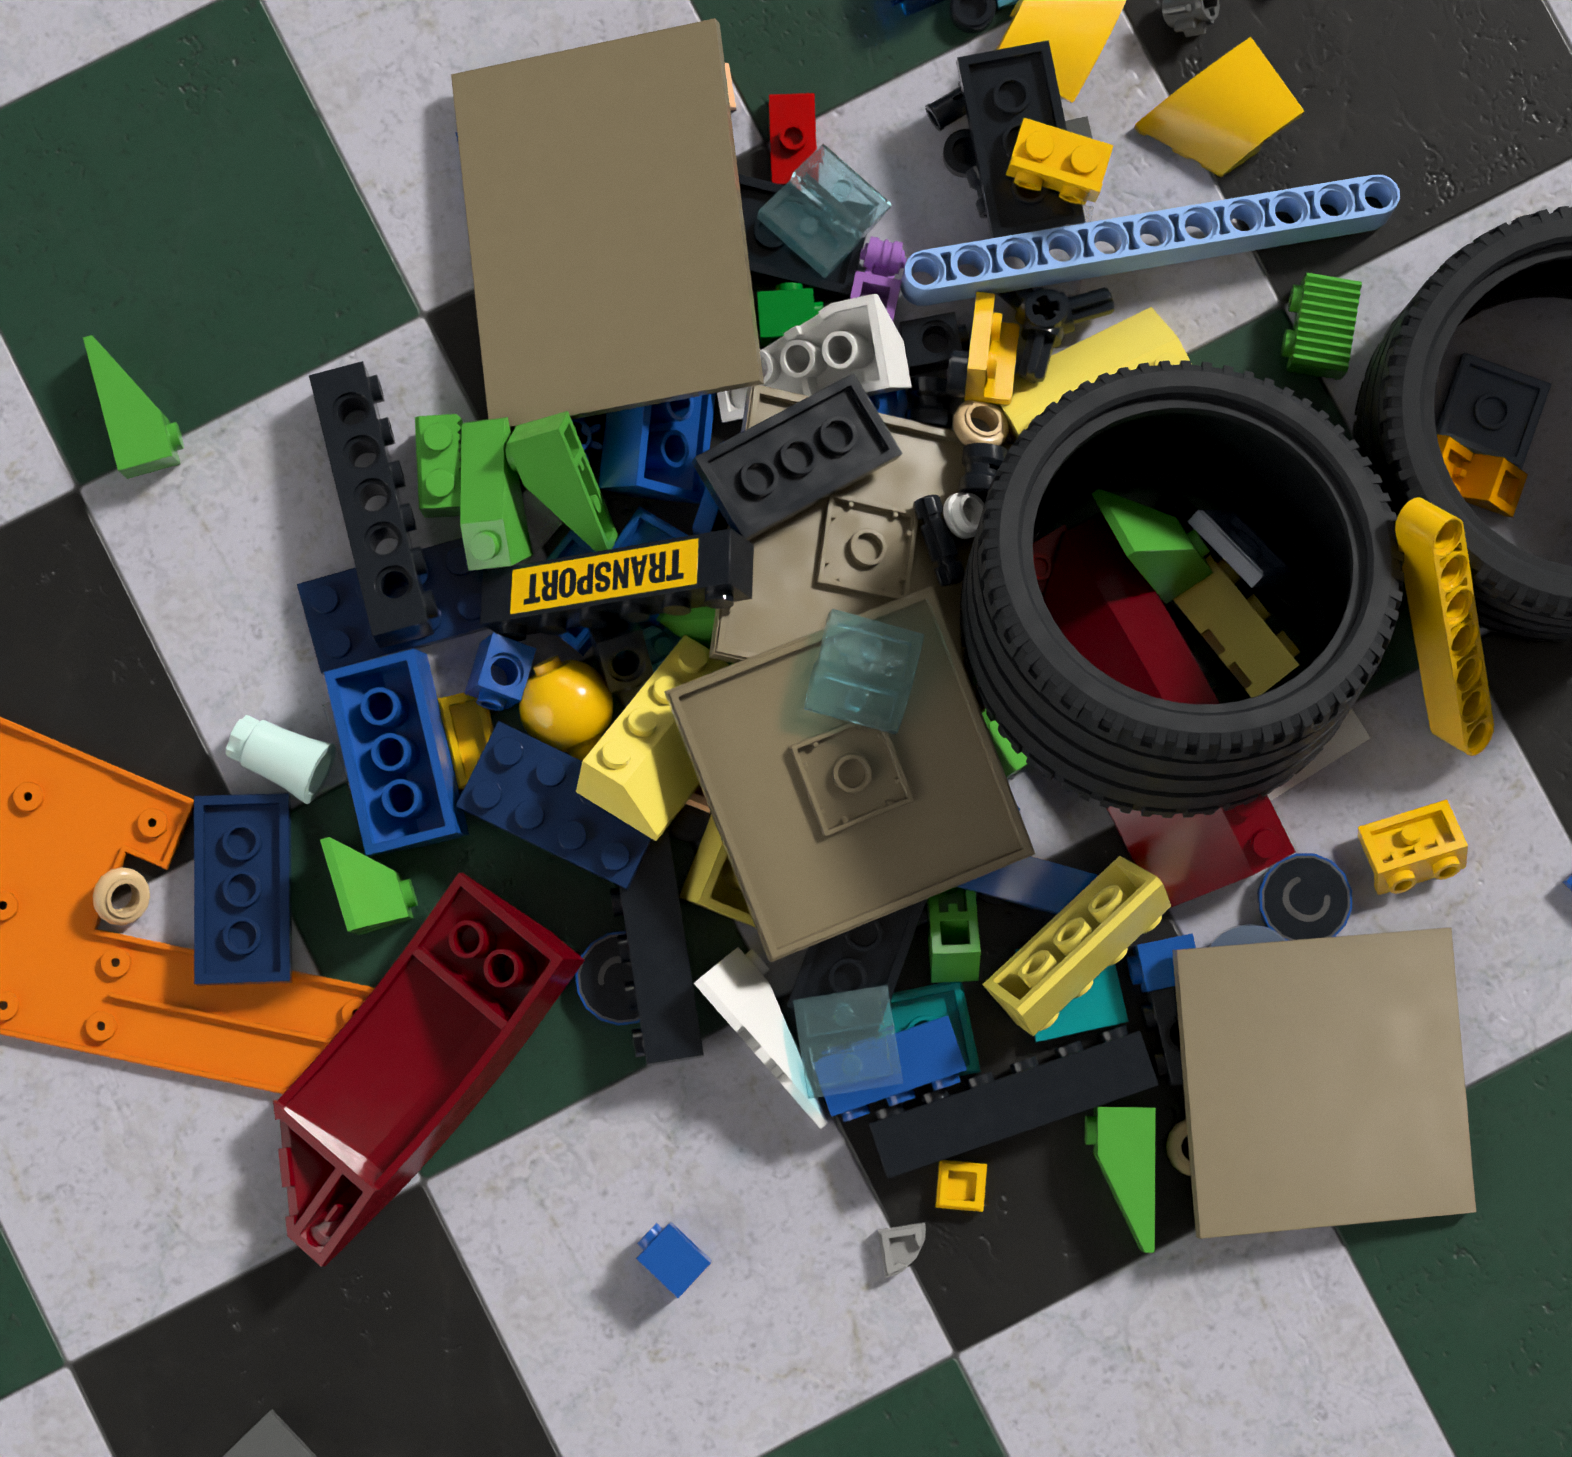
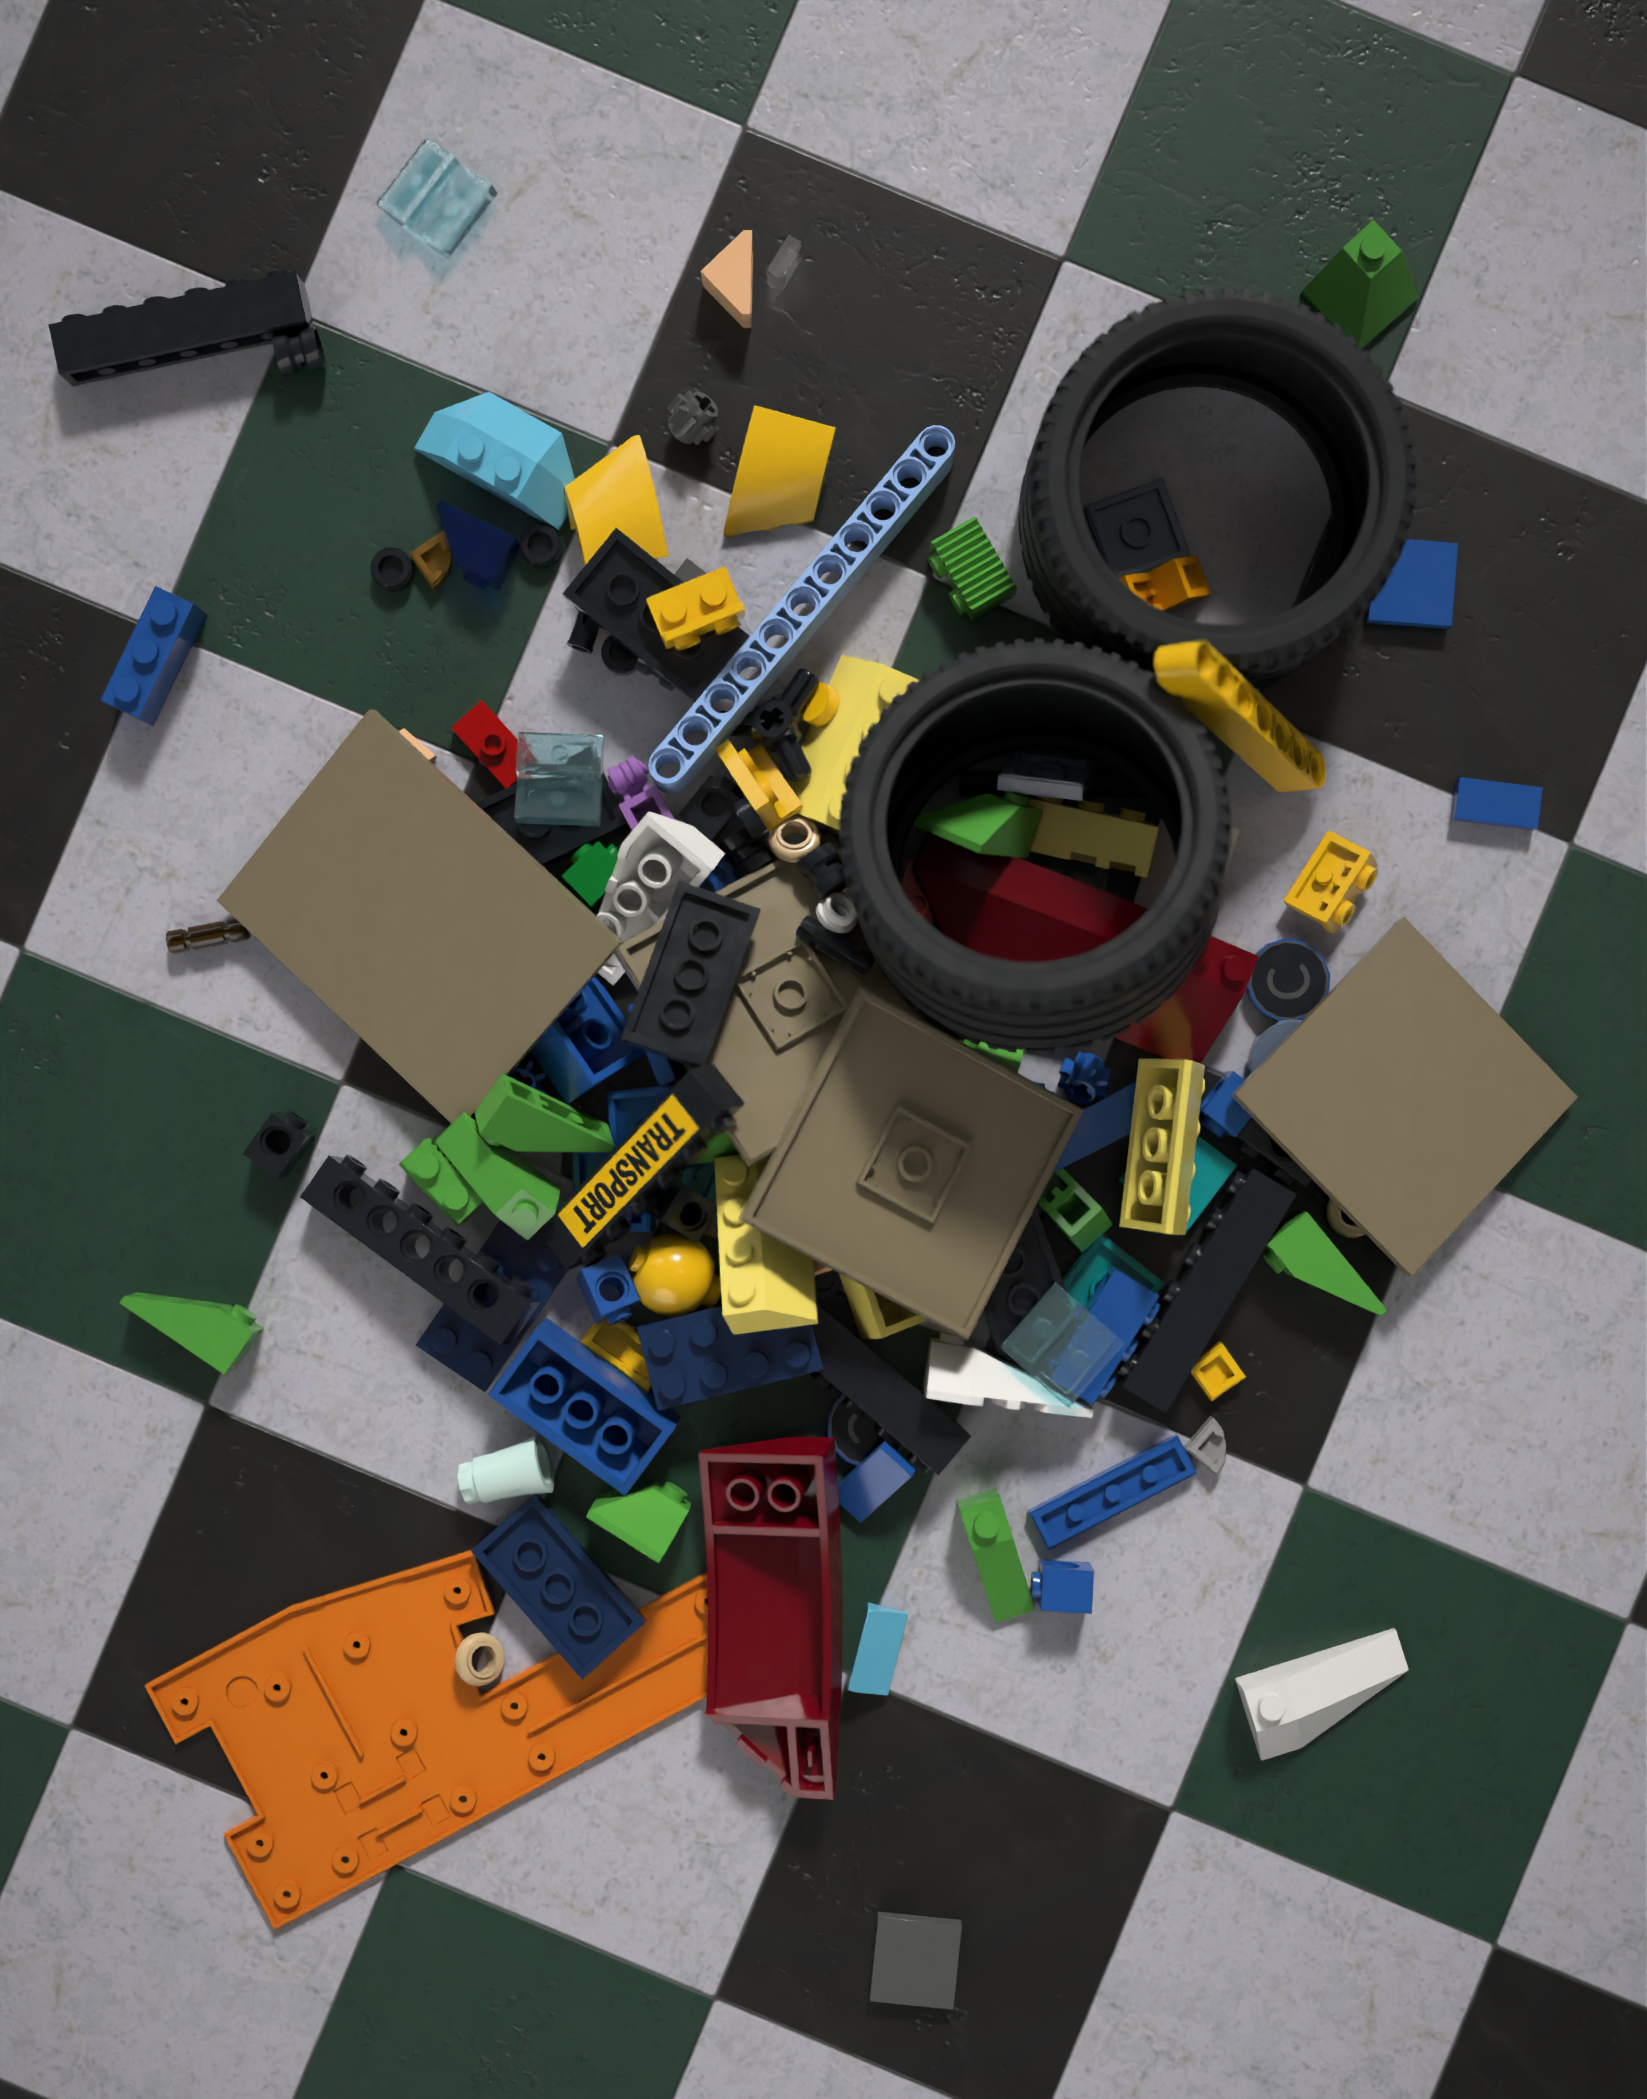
camera: 40 degrees left, 5 degrees up
(312, 308) = (262, 1148): none -> black brick
(416, 98) = (206, 936): none -> dark brown axle
(465, 1178) = (877, 1650): none -> medium azure slope
(586, 1027) = (874, 1481): none -> blue tile
(636, 1184) = (996, 1555): none -> bright green slope
(783, 1214) = (1112, 1491): none -> blue tile
(864, 671) = (865, 1088): clear light blue slope -> none
(1058, 834) = (1084, 1078): none -> blue gear
(1097, 333) = (821, 705): none -> yellow tile

